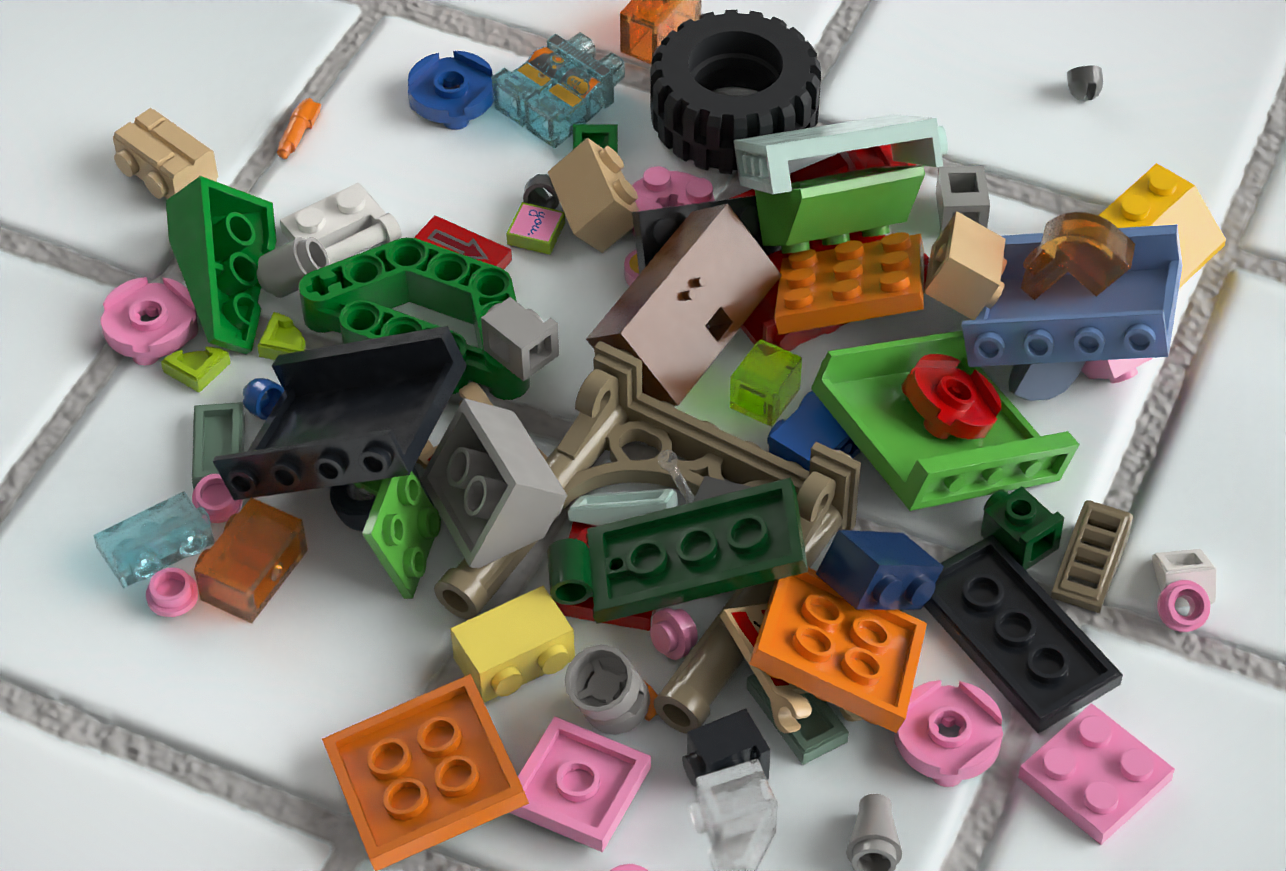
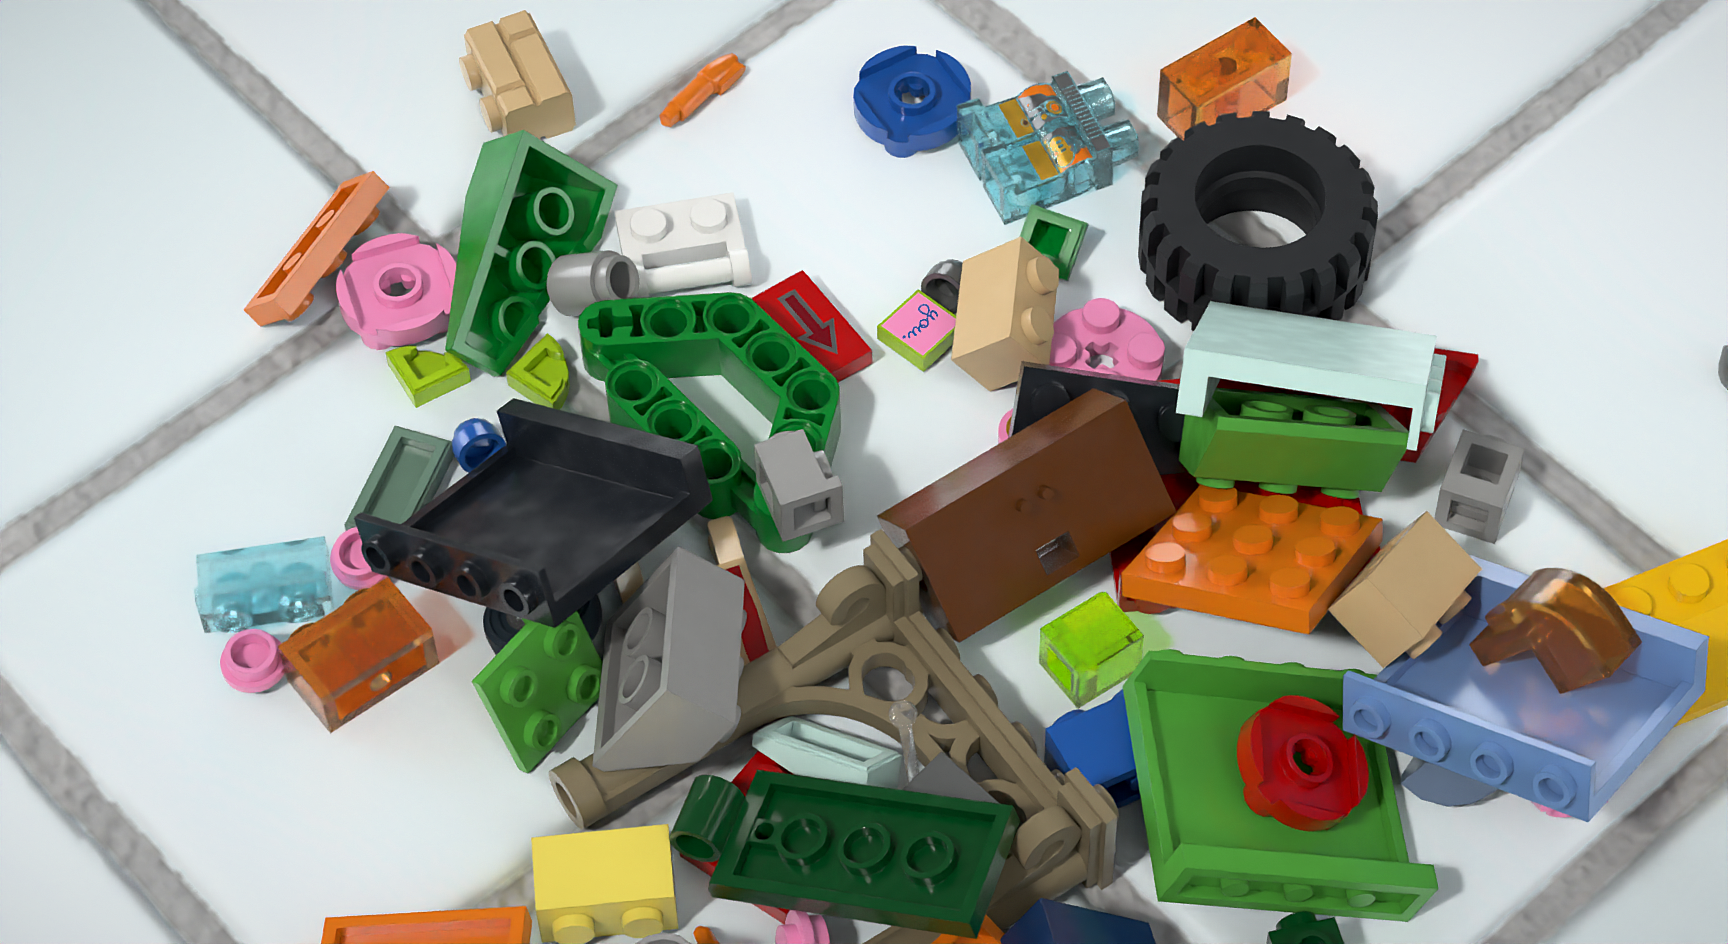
camera: 25 degrees right, 5 degrees up
(74, 310) = (318, 250): none -> orange plate

